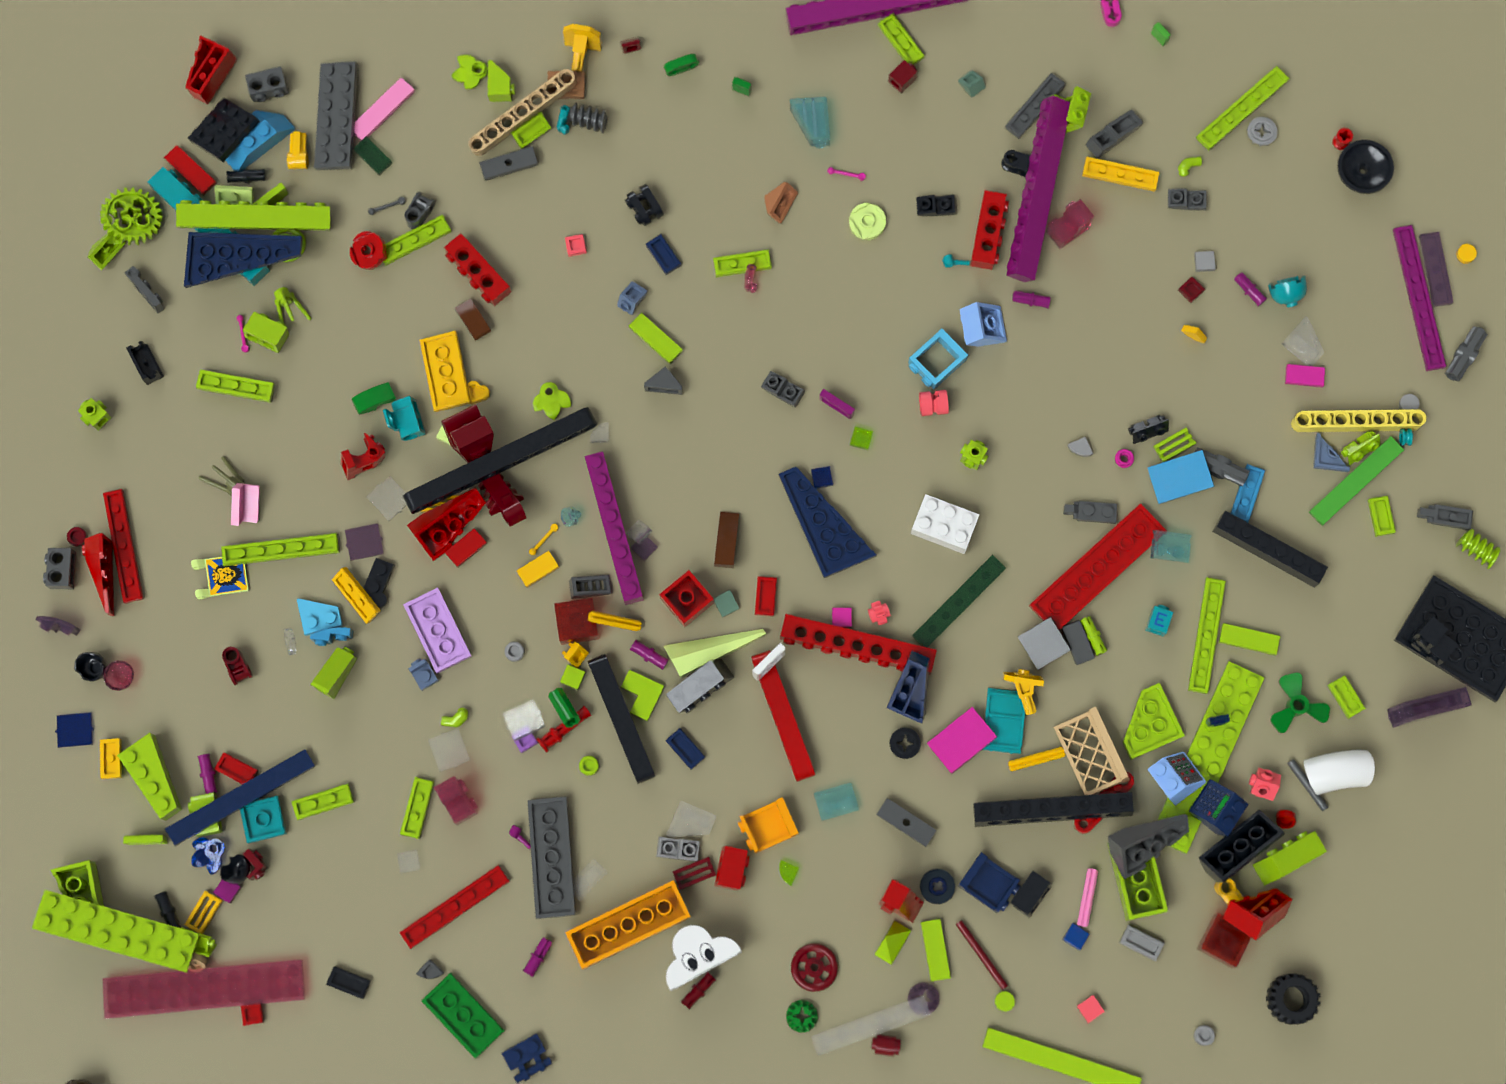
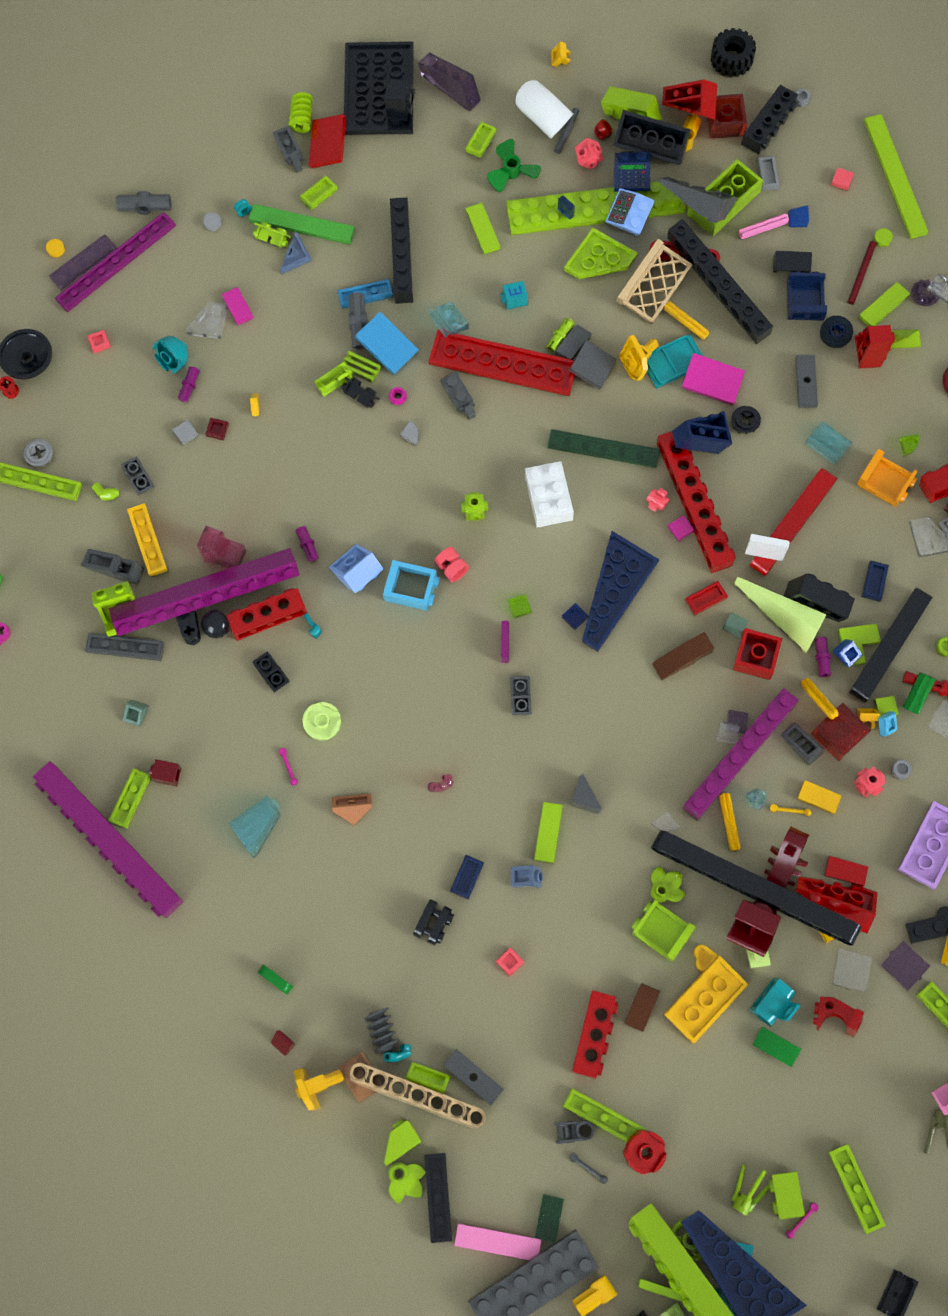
camera: 120 degrees left, 5 degrees down
(441, 86) = (438, 1198): none -> black plate
(519, 374) = (662, 930): none -> lime panel
(525, 619) = (866, 787): none -> coral brick
(557, 664) = (887, 723): none -> medium azure tile
(567, 484) = (729, 821): none -> yellow axle
(638, 675) = (847, 652): none -> blue slope
(738, 263) = (430, 803): lime tile -> none
(741, 86) = (262, 909): green tile -> none
(1005, 181) = (215, 624): none -> black hair
(1175, 412) = (333, 379): none -> lime hinge
(1197, 983) = (769, 119): none -> black brick
(1206, 635) = (500, 259): lime tile -> none
(1343, 239) = (99, 341): none -> coral tile
(1350, 424) = (253, 253): light yellow beam -> none
(1397, 831) = (559, 55): none -> yellow tile
(1431, 554) = (327, 141): none -> red tile

